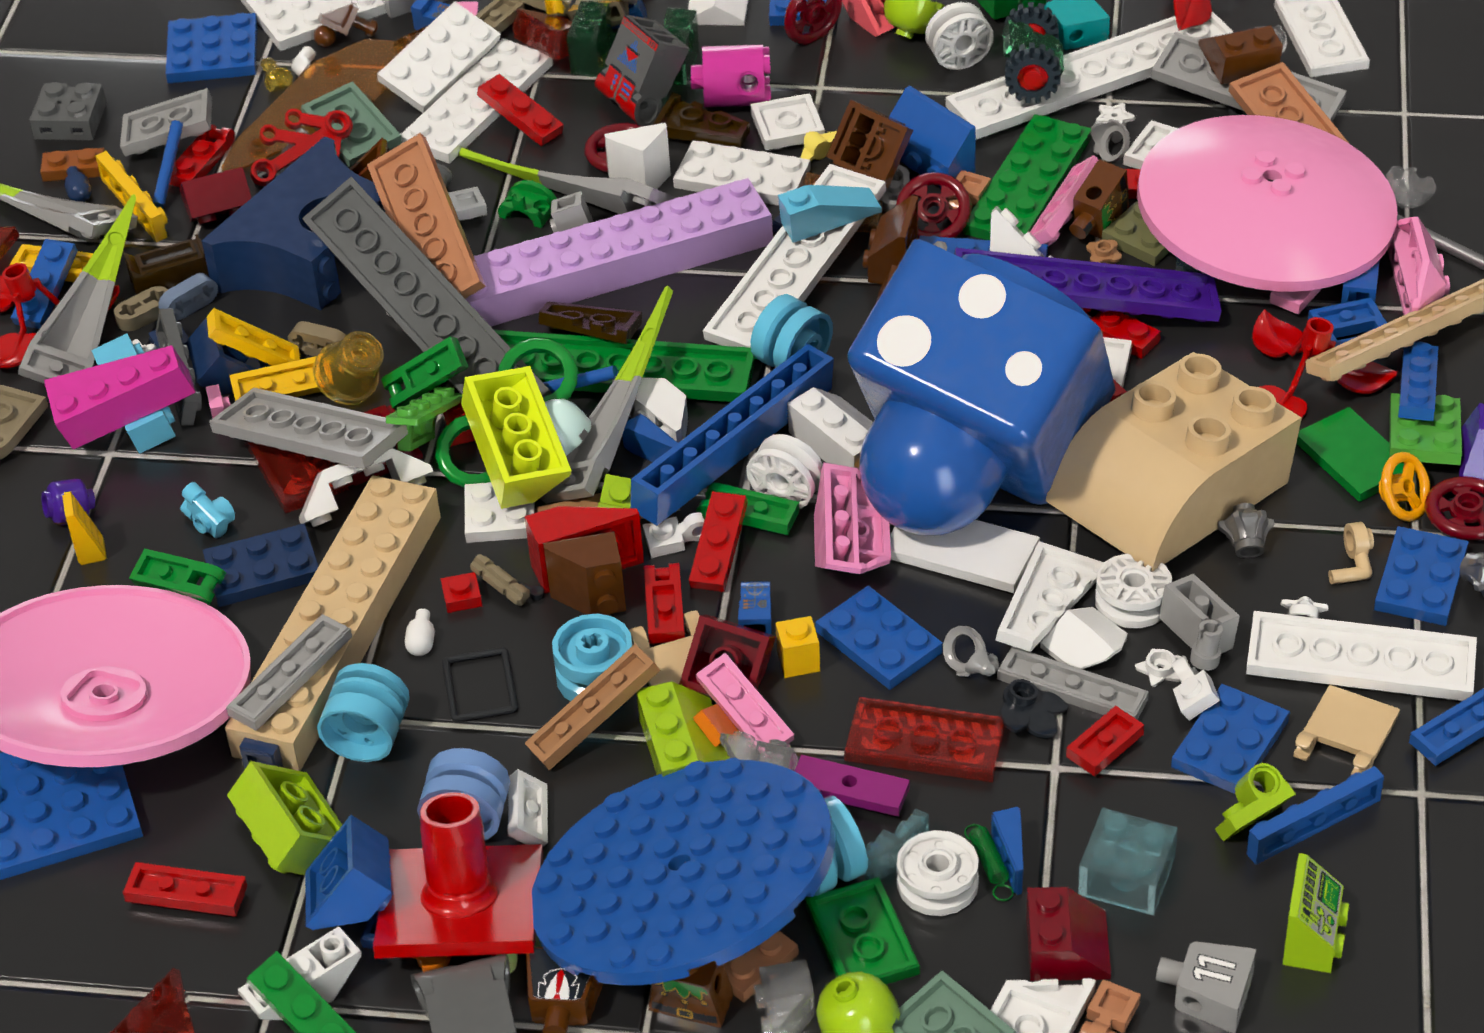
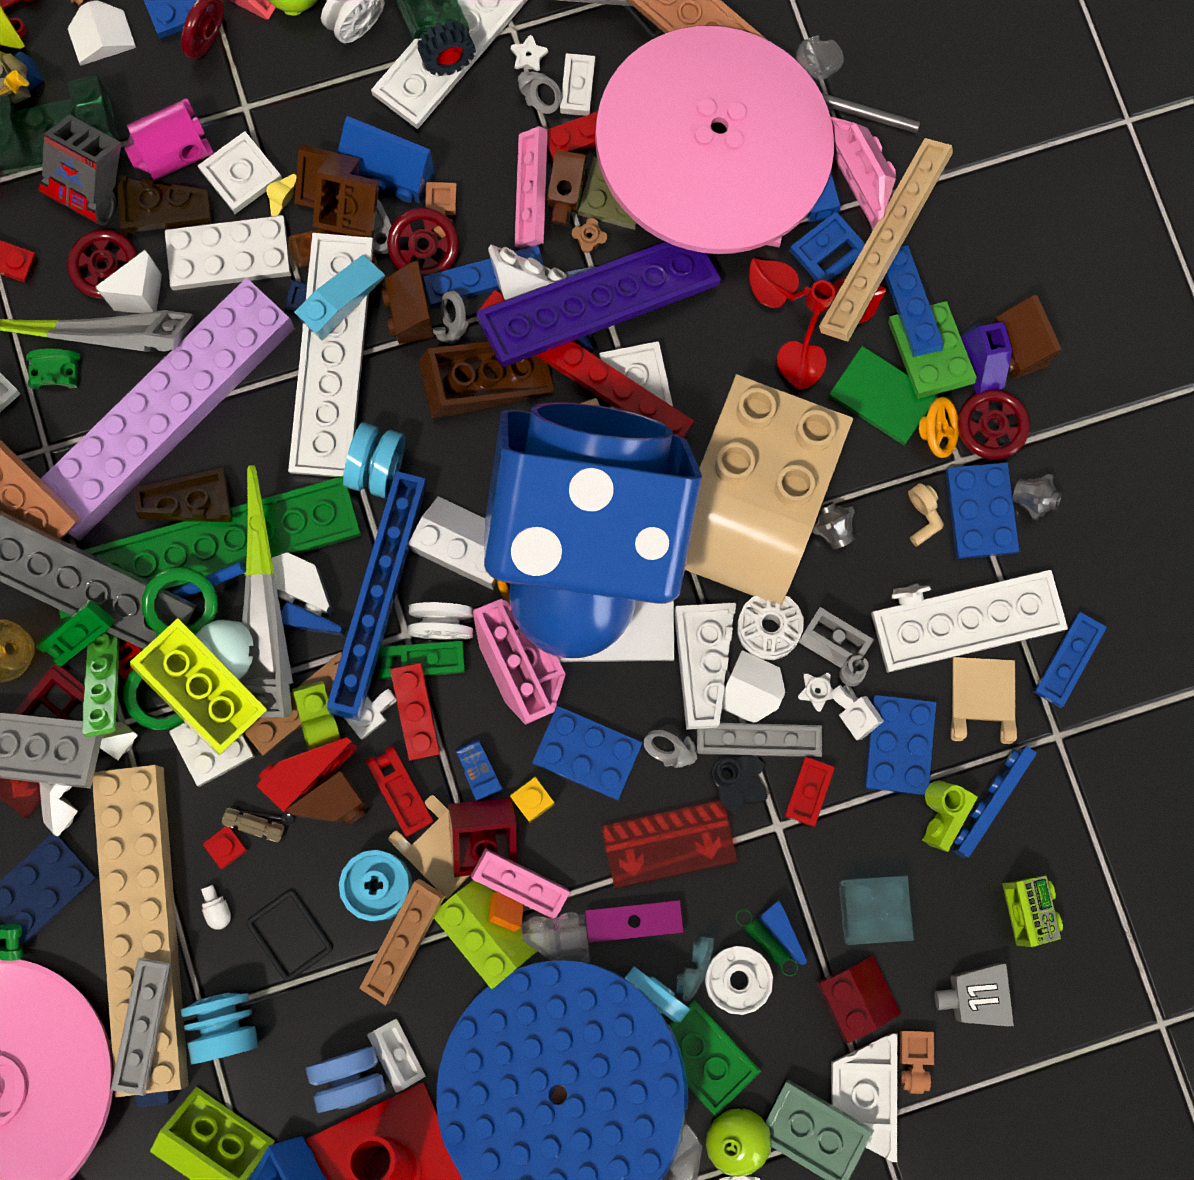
camera: 30 degrees left, 35 degrees up
(569, 212) = (107, 382): light grey brick -> none
(1030, 174) = (486, 164): green plate -> none
(1121, 326) = (646, 327): red plate -> none

